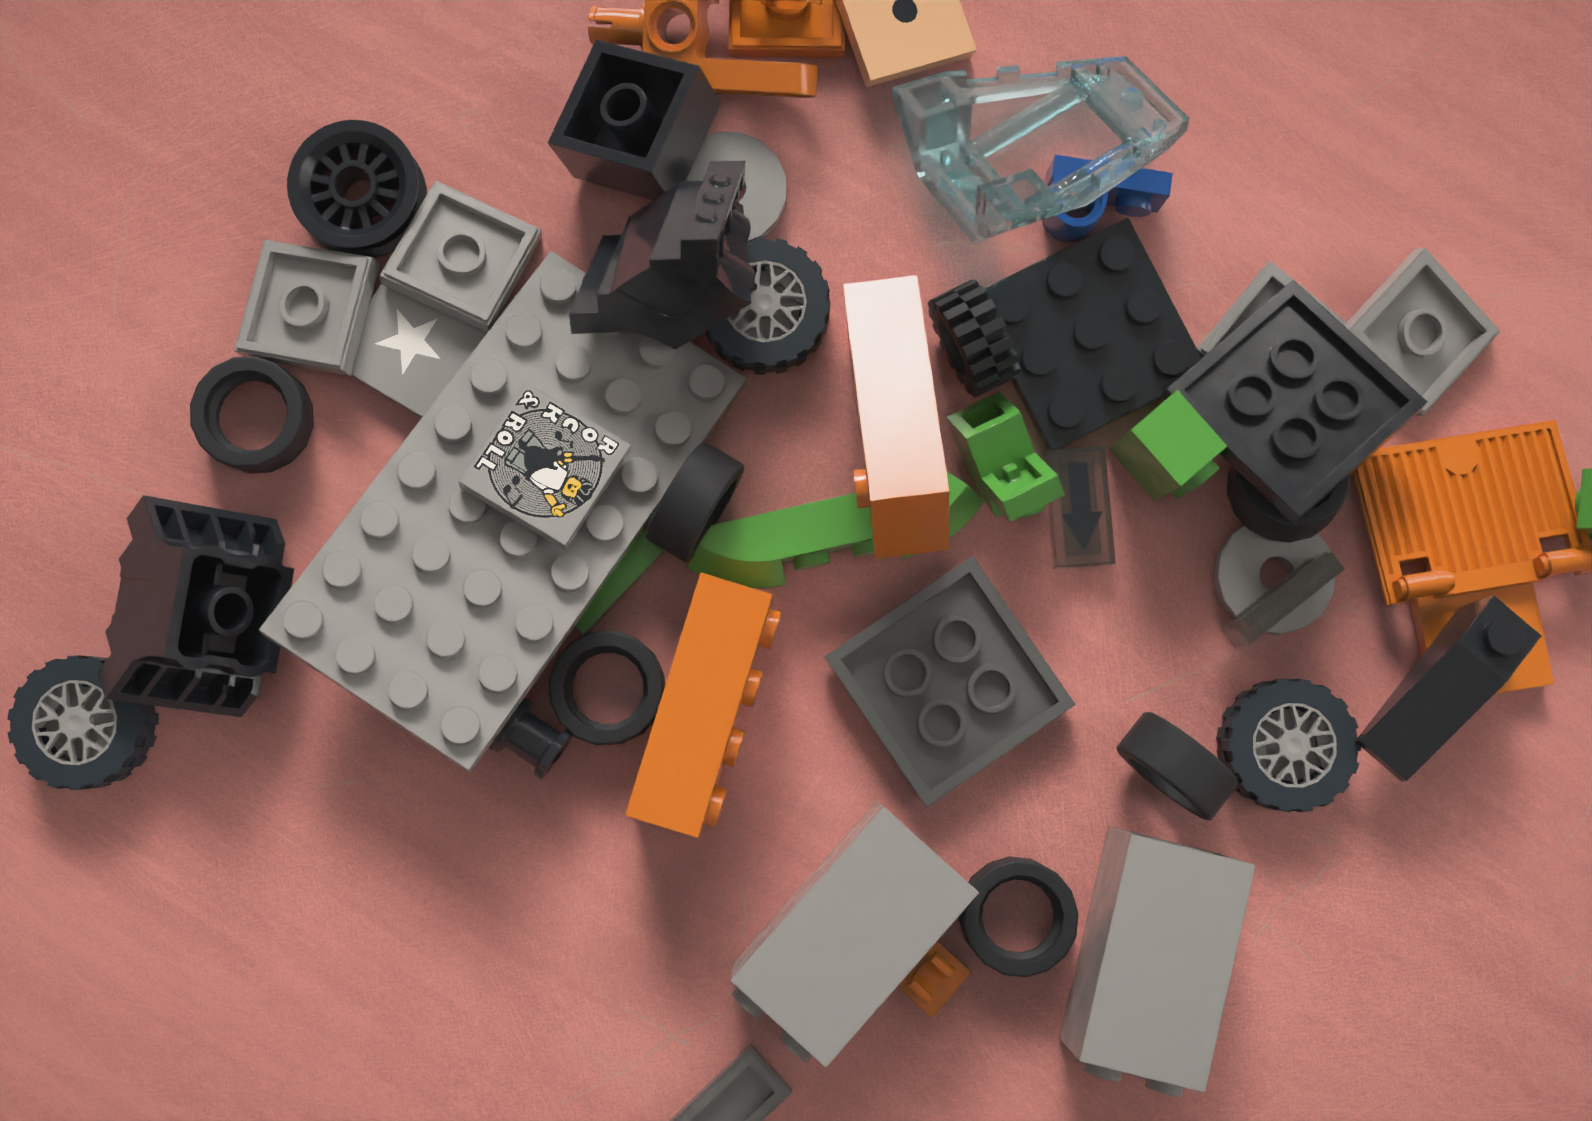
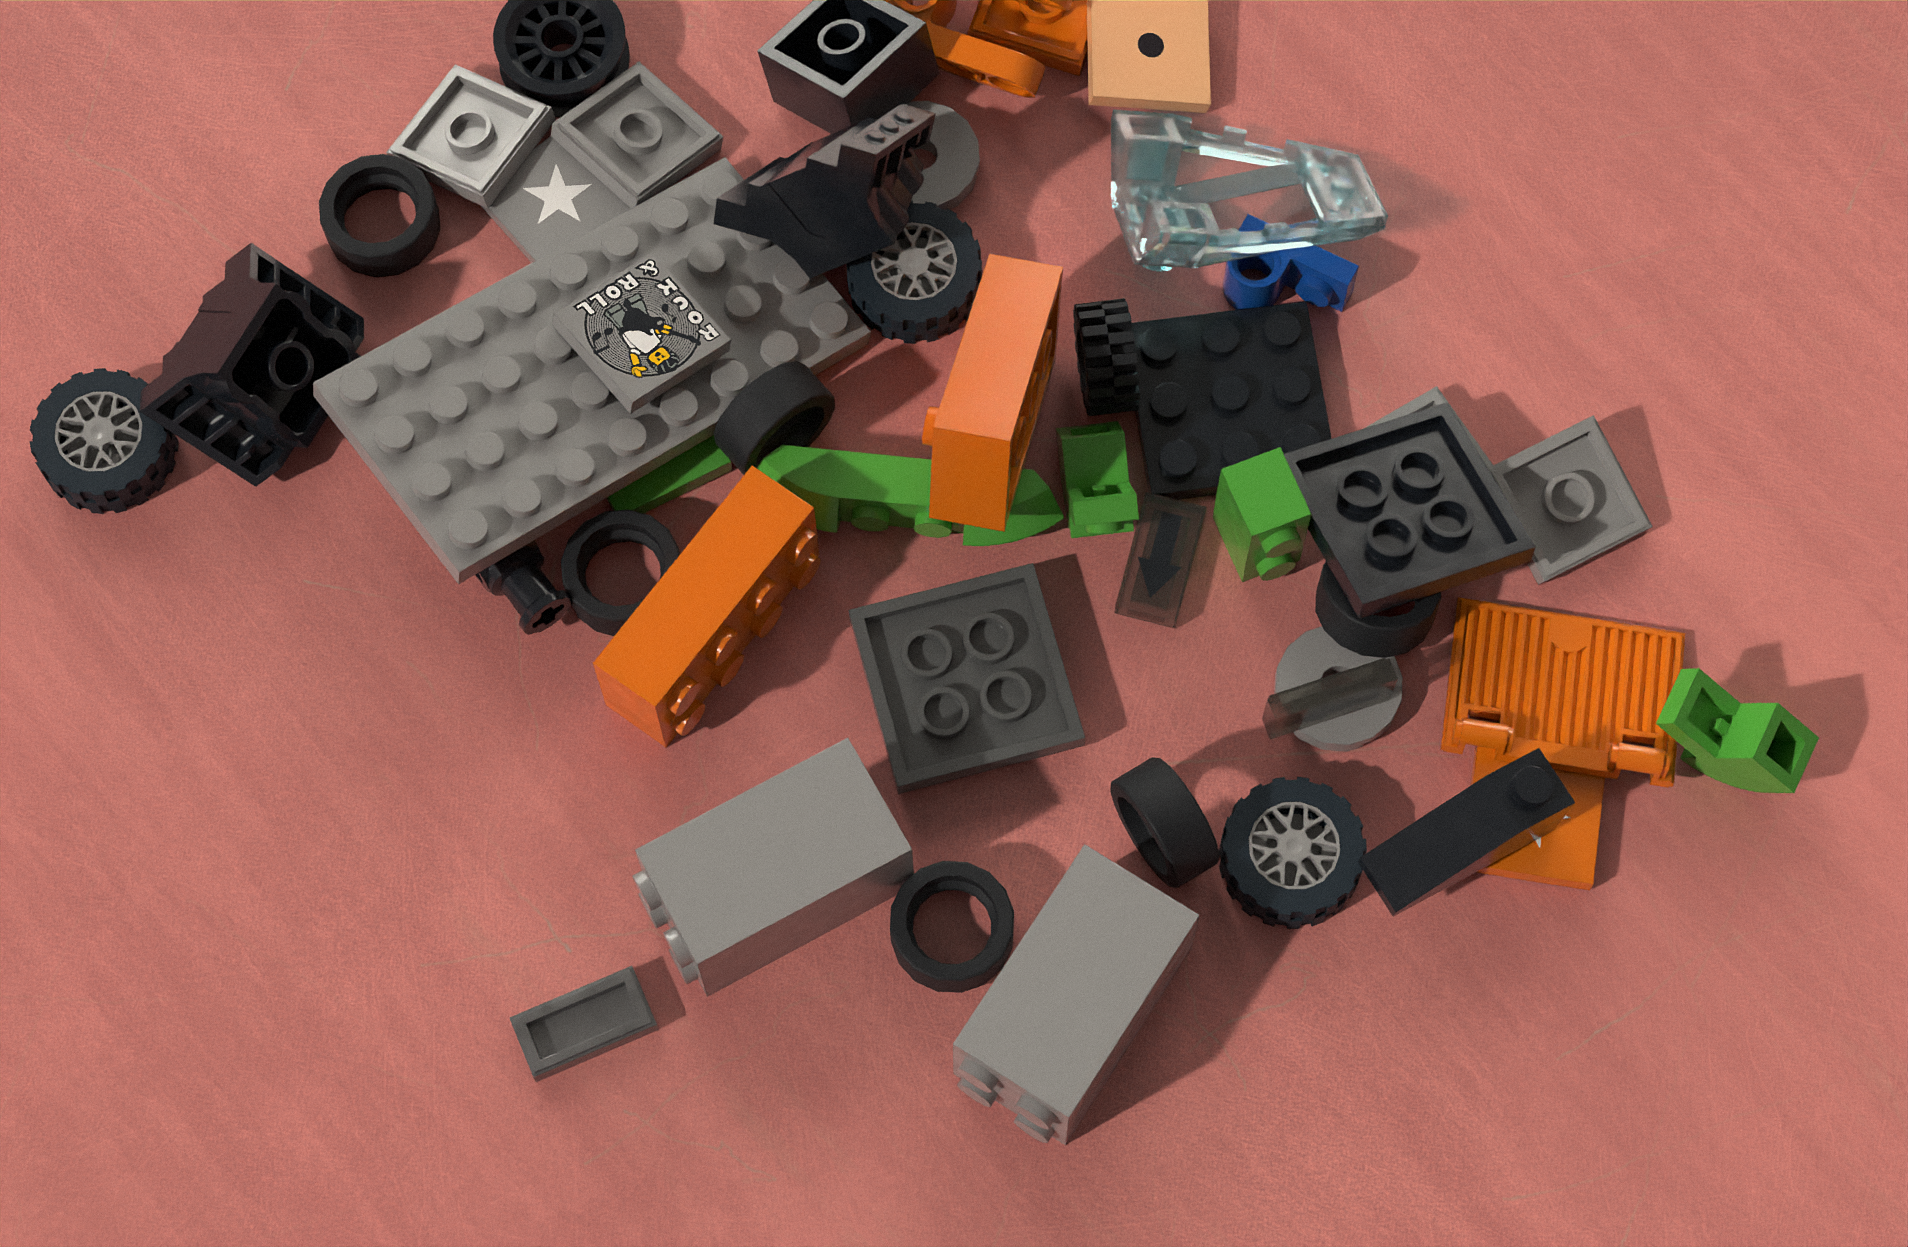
camera: 25 degrees right, 15 degrees down
(934, 979) = (840, 958): orange tile -> none

